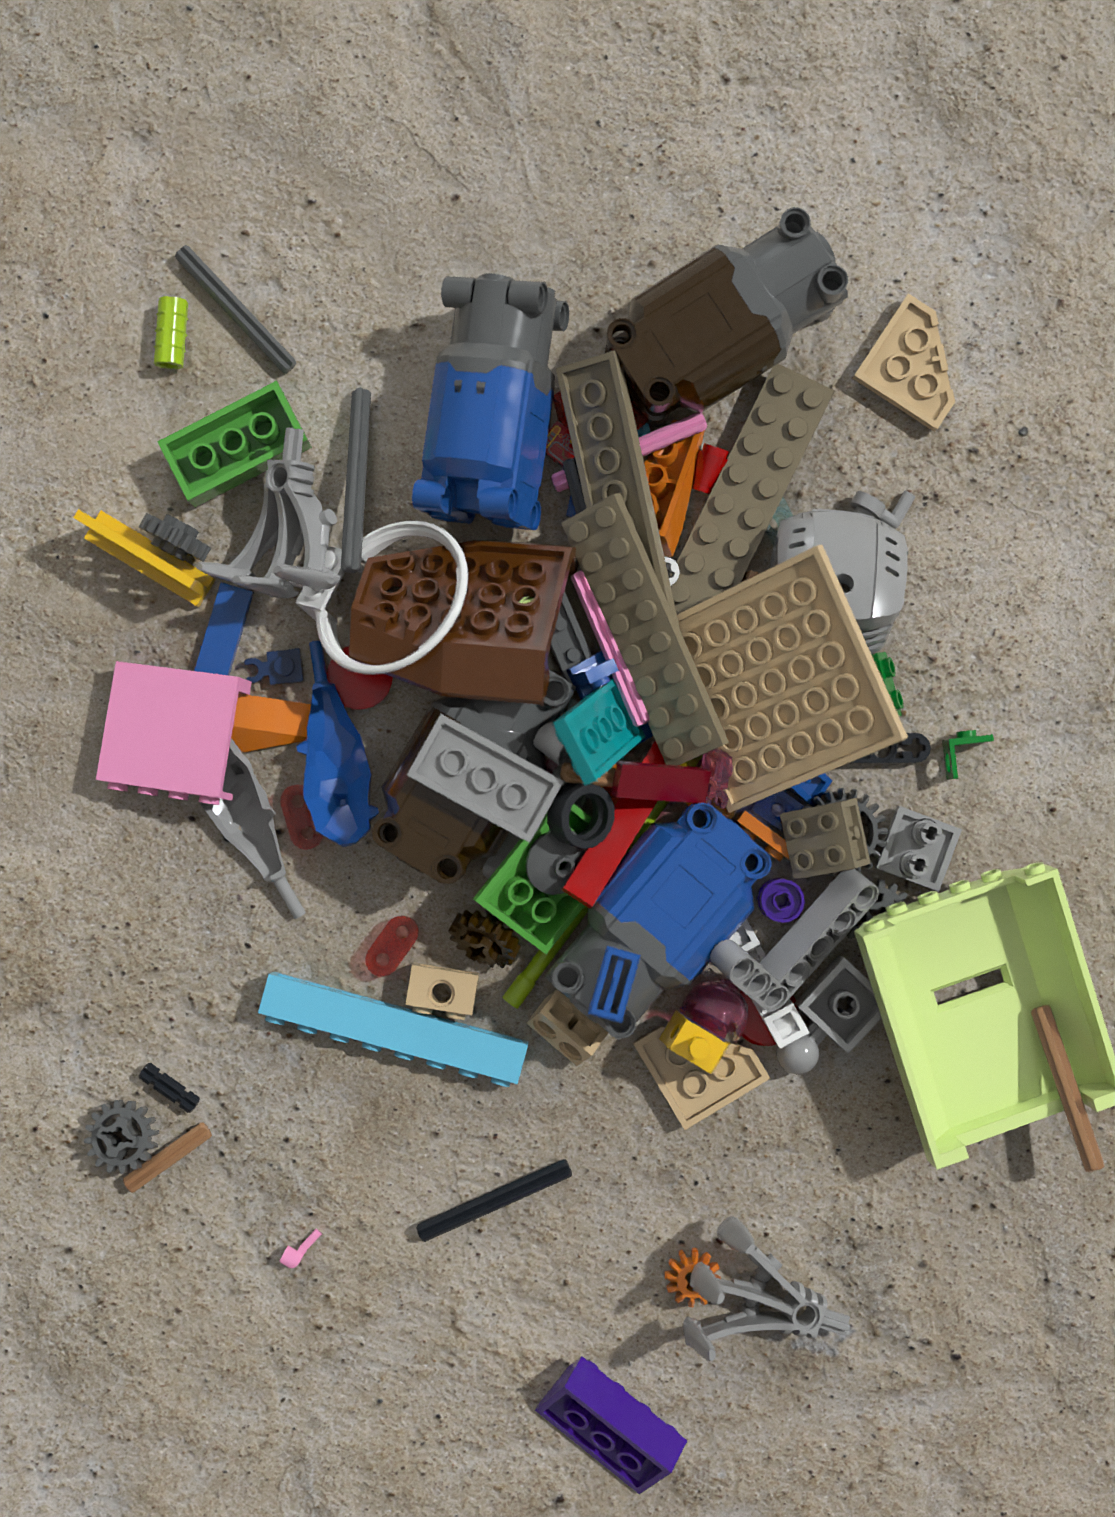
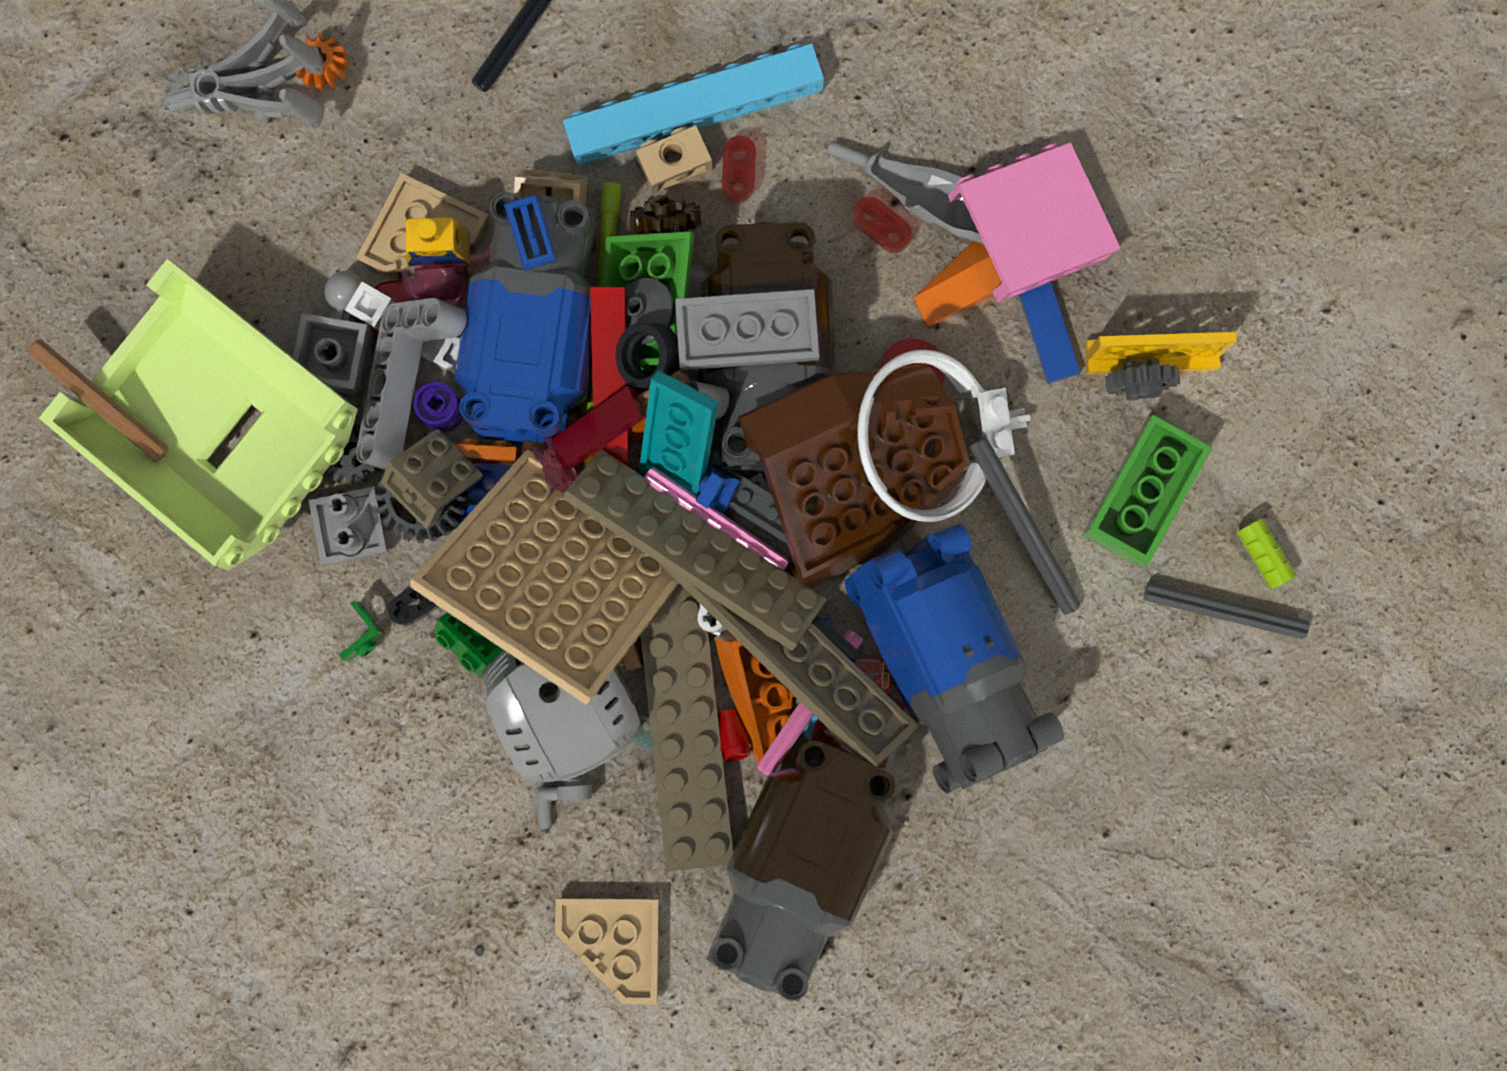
camera: 150 degrees right, 5 degrees down
(281, 667) = (983, 336): dark blue plate -> none
(291, 519) = (1052, 455): light grey piece -> none
(336, 764) = (881, 279): blue piece -> none

